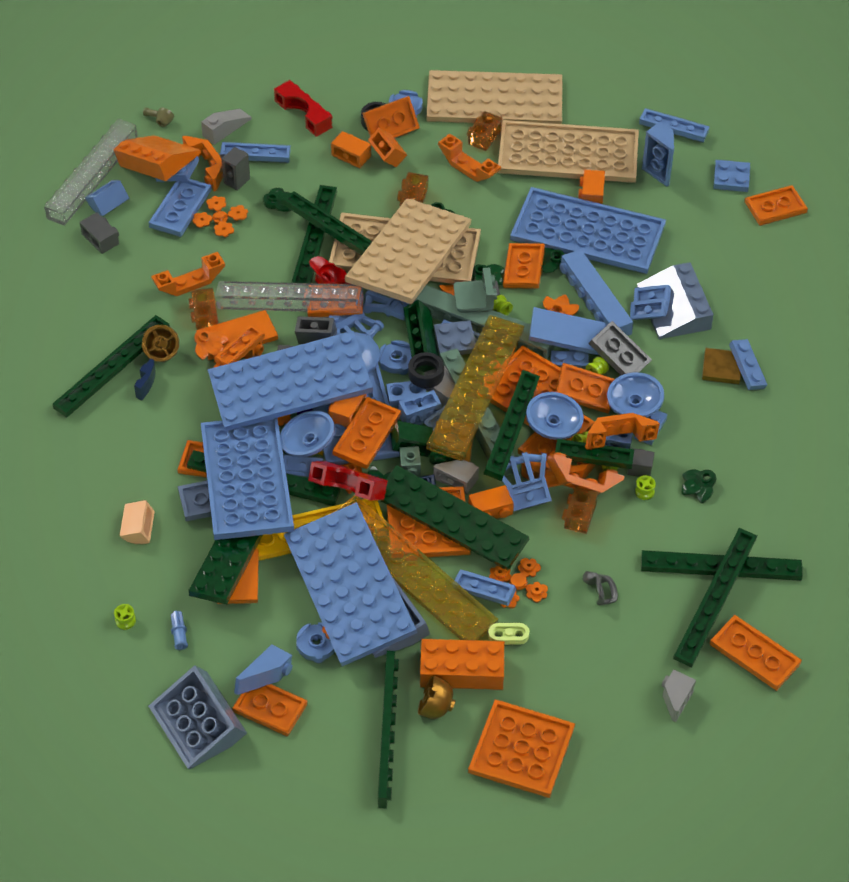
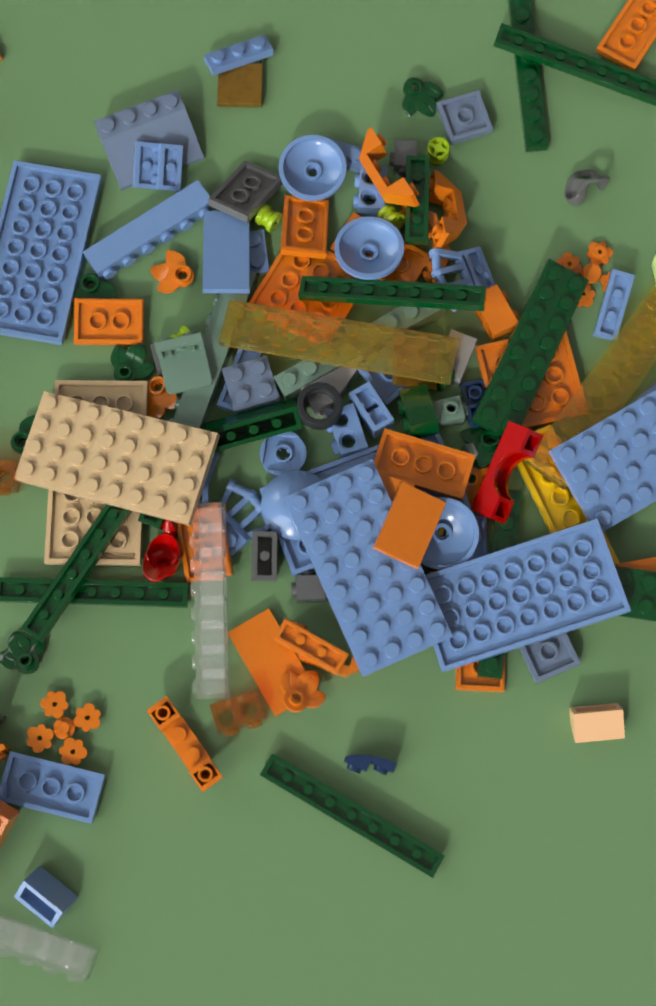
camera: 95 degrees left, 25 degrees up
(99, 232) = (116, 890): dark grey brick -> none
(160, 343) = (315, 753): pearl gold cylinder -> none
(314, 401) = (409, 525): none -> orange tile
(580, 510) = (485, 209): clear orange brick -> none
(675, 510) = (464, 117): none -> sand blue plate

